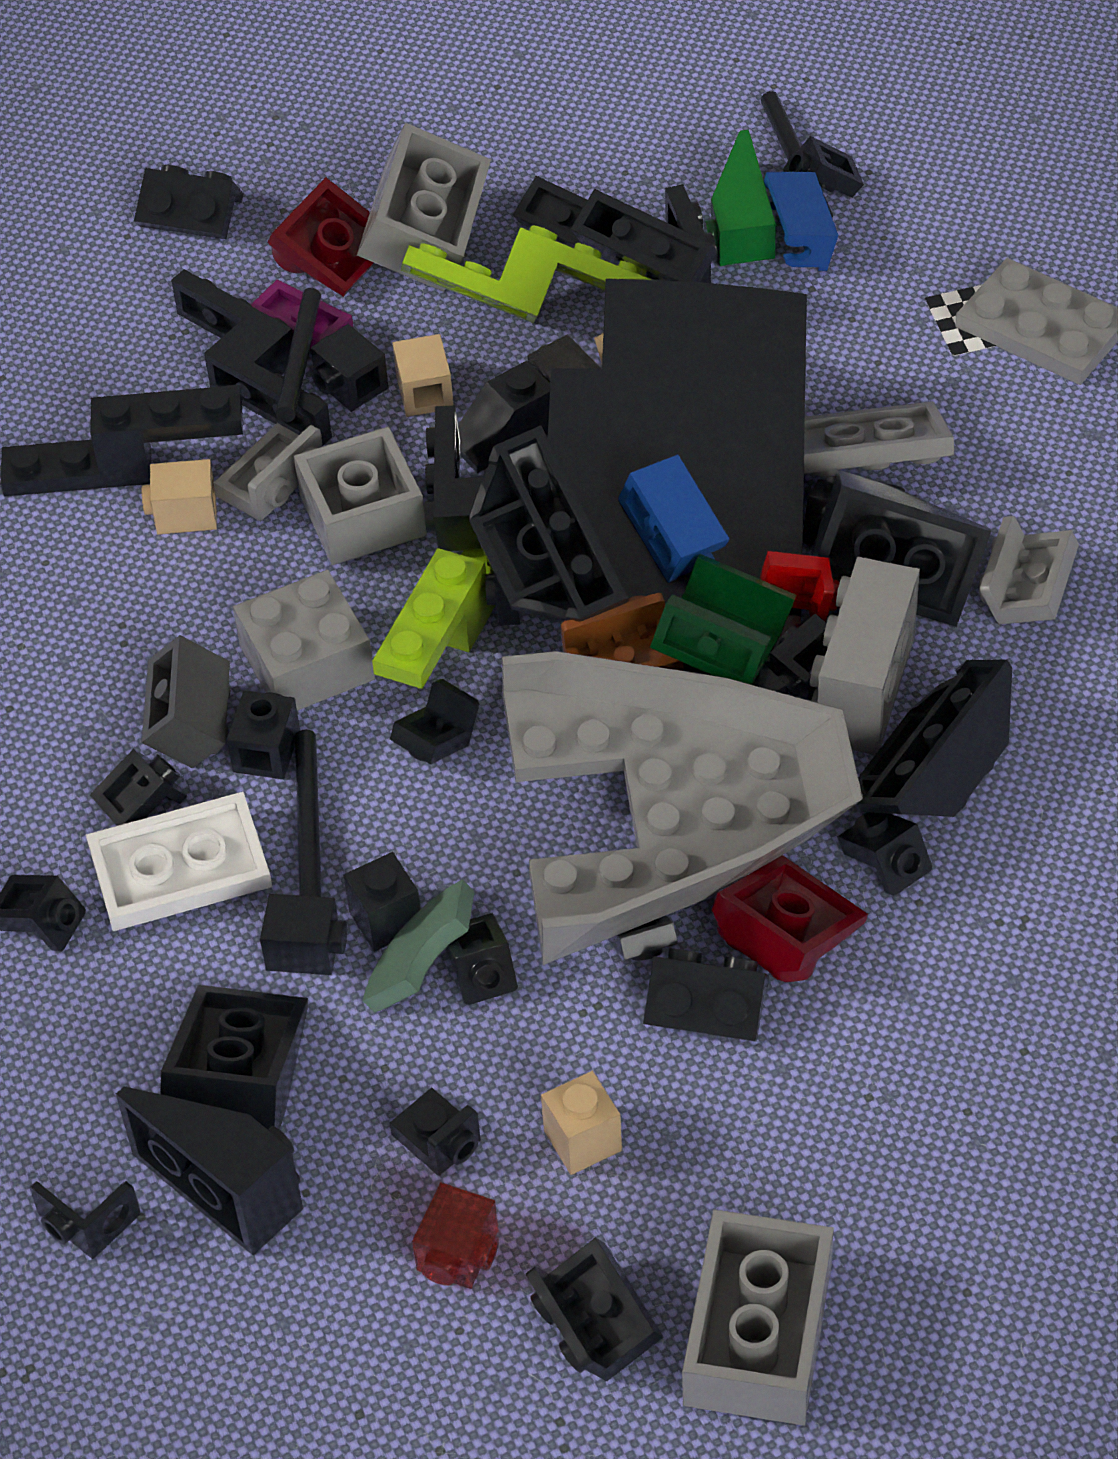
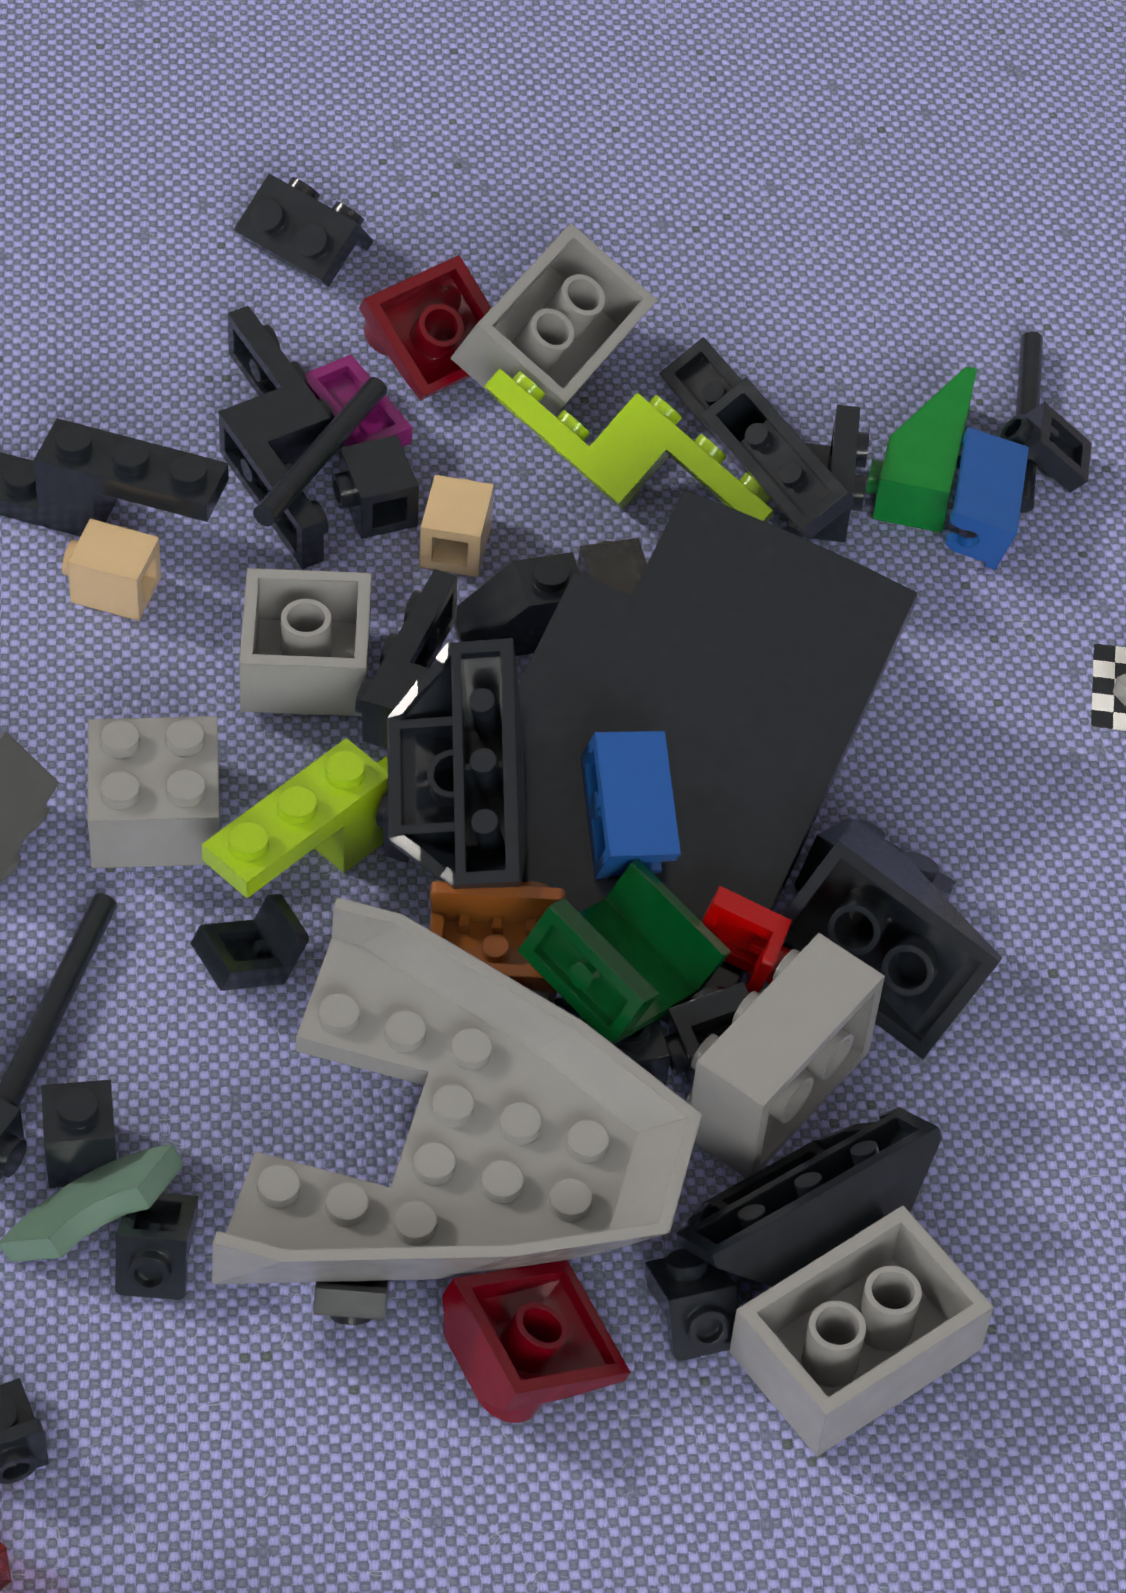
camera: 15 degrees right, 0 degrees up
(263, 734) = (53, 882): black brick -> none
(266, 472) = (212, 578): light grey bracket -> none
(581, 1122) = (161, 1492): tan brick -> none
(705, 996) = (389, 1396): black bracket -> none
(875, 438) = (931, 792): light grey plate -> none
(1017, 821) = (860, 1330): none -> light grey brick
(1027, 573) = (1034, 1026): light grey bracket -> none

